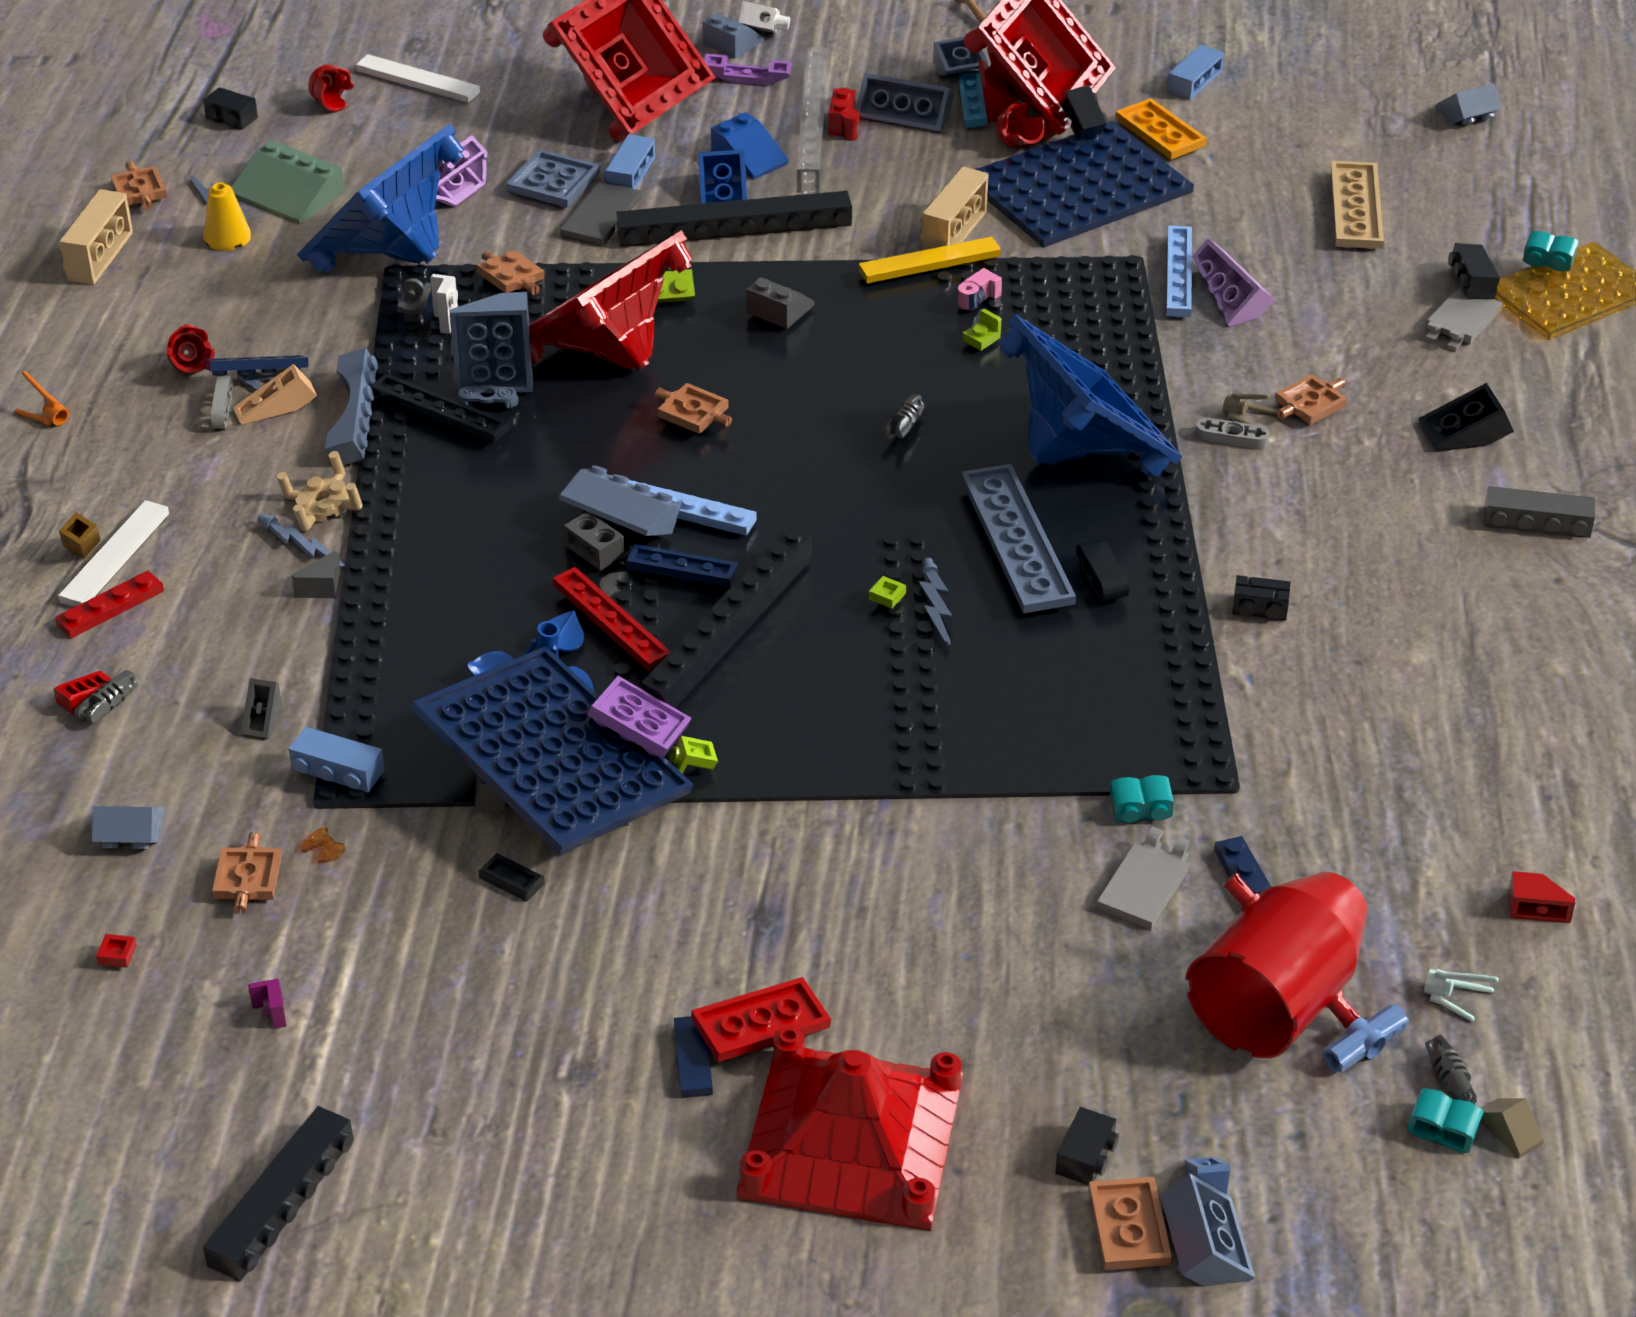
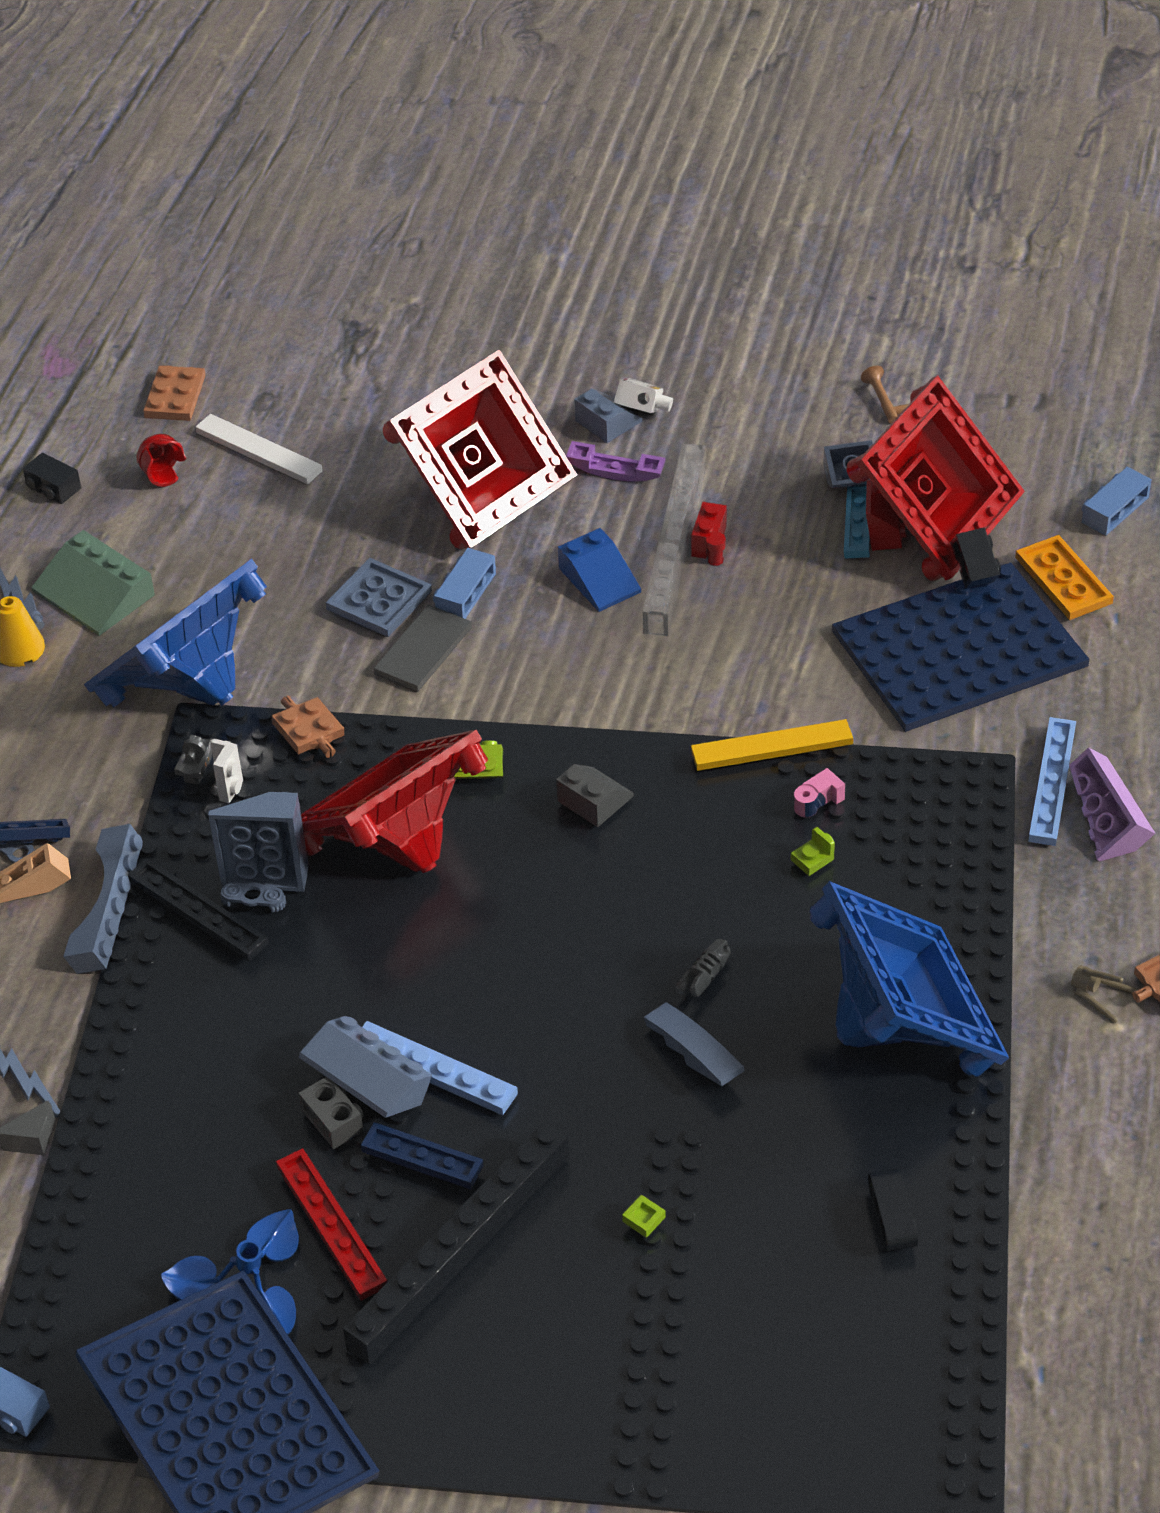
camera: 10 degrees right, 5 degrees up
(330, 41) = (174, 393): none -> nougat plate
(330, 492) = (49, 1006): tan plate -> none
(465, 177) = (286, 586): lavender wedge -> none
(639, 717) = (331, 1377): medium lavender plate -> none
(692, 408) = (472, 933): nougat plate -> none
(693, 752) = (386, 1427): lime bracket -> none
(722, 176) = (561, 620): blue slope -> none
(735, 218) = (565, 668): black brick -> none
(904, 102) = (780, 523): sand blue slope -> none
(910, 470) = (696, 1045): none -> sand blue slope
(931, 590) = (694, 1214): sand blue piece -> none
(955, 209) = (809, 682): tan brick -> none
(1018, 128) = (902, 569): red helmet -> none
(1018, 538) = (804, 1154): sand blue plate -> none
(1247, 435) = (1094, 1031): light grey beam -> none
(1261, 597) = (1071, 1263): black brick -> none

